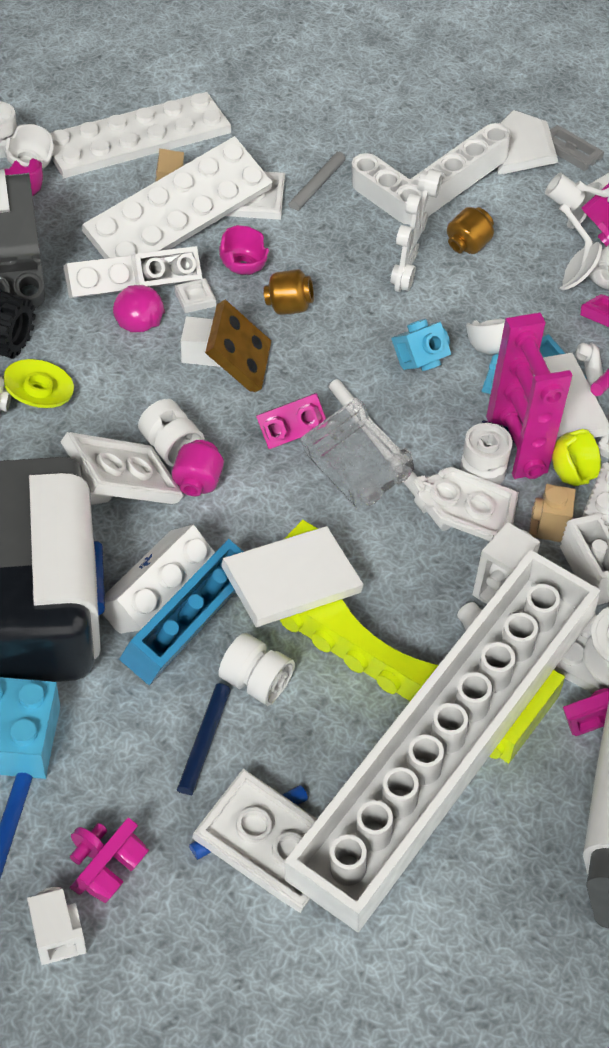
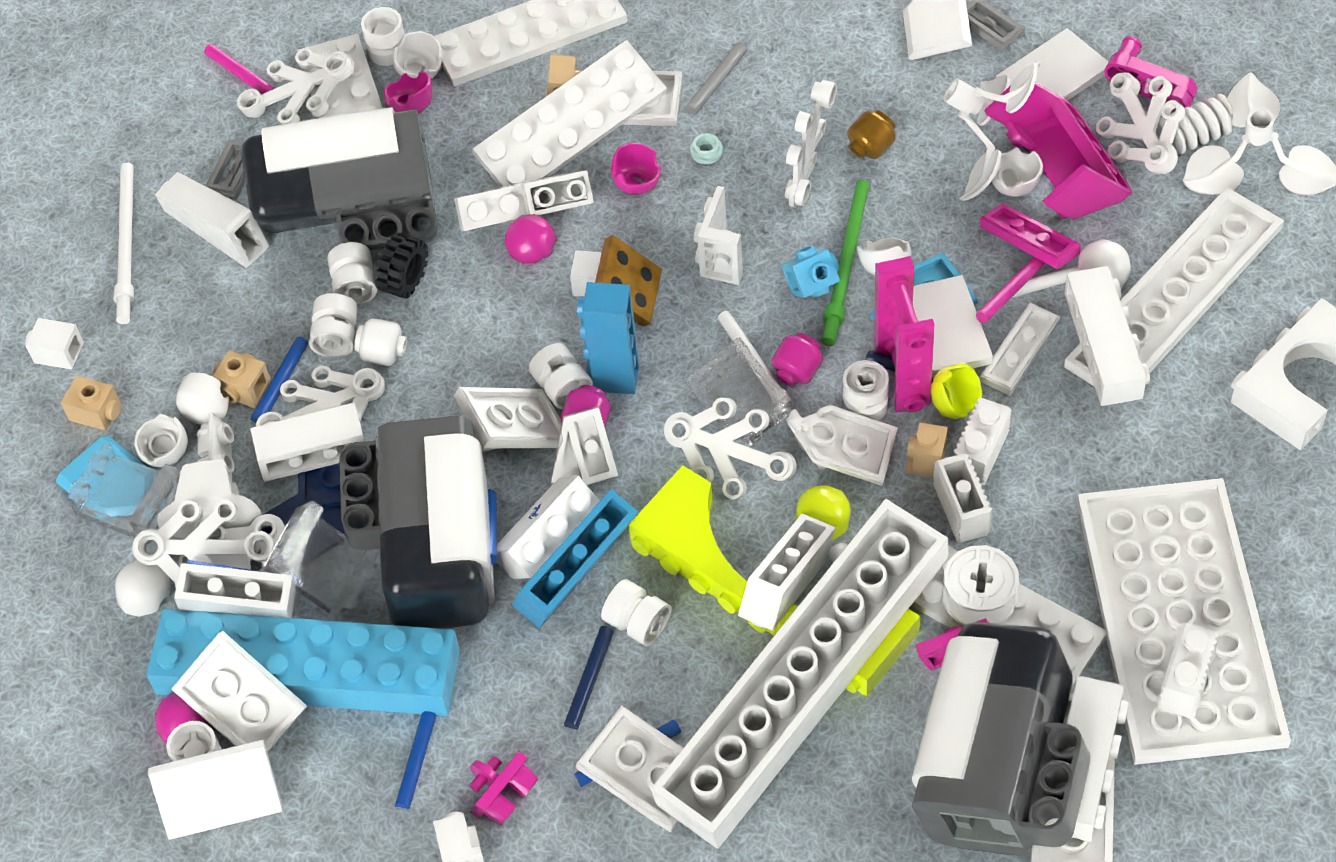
camera: 10 degrees right, 5 degrees up
(38, 383) = (432, 327): neon yellow dish -> none
(195, 295) = (587, 220): white tile -> none
(197, 500) = (583, 448): none -> white wing
(226, 387) = (609, 337): none -> dark azure brick
(289, 292) = (679, 214): pearl gold head -> none
(291, 420) = (676, 359): dark pink hips -> none
(291, 576) = (669, 523): white tile -> none
(311, 237) = (703, 142): none -> light aqua plate
(331, 317) = (718, 249): none -> white bracket
(343, 501) = (723, 445): none -> white plant
(413, 424) = (797, 359): none -> dark pink head
(421, 628) = (786, 572): none -> white brick
(446, 383) = (834, 311): none -> bright green bar
(448, 573) = (826, 505): none -> neon yellow hair
(460, 170) = (850, 70): white beam -> none
(501, 558) = (867, 497): white brick -> none
(592, 361) = (986, 286): white arm -> none

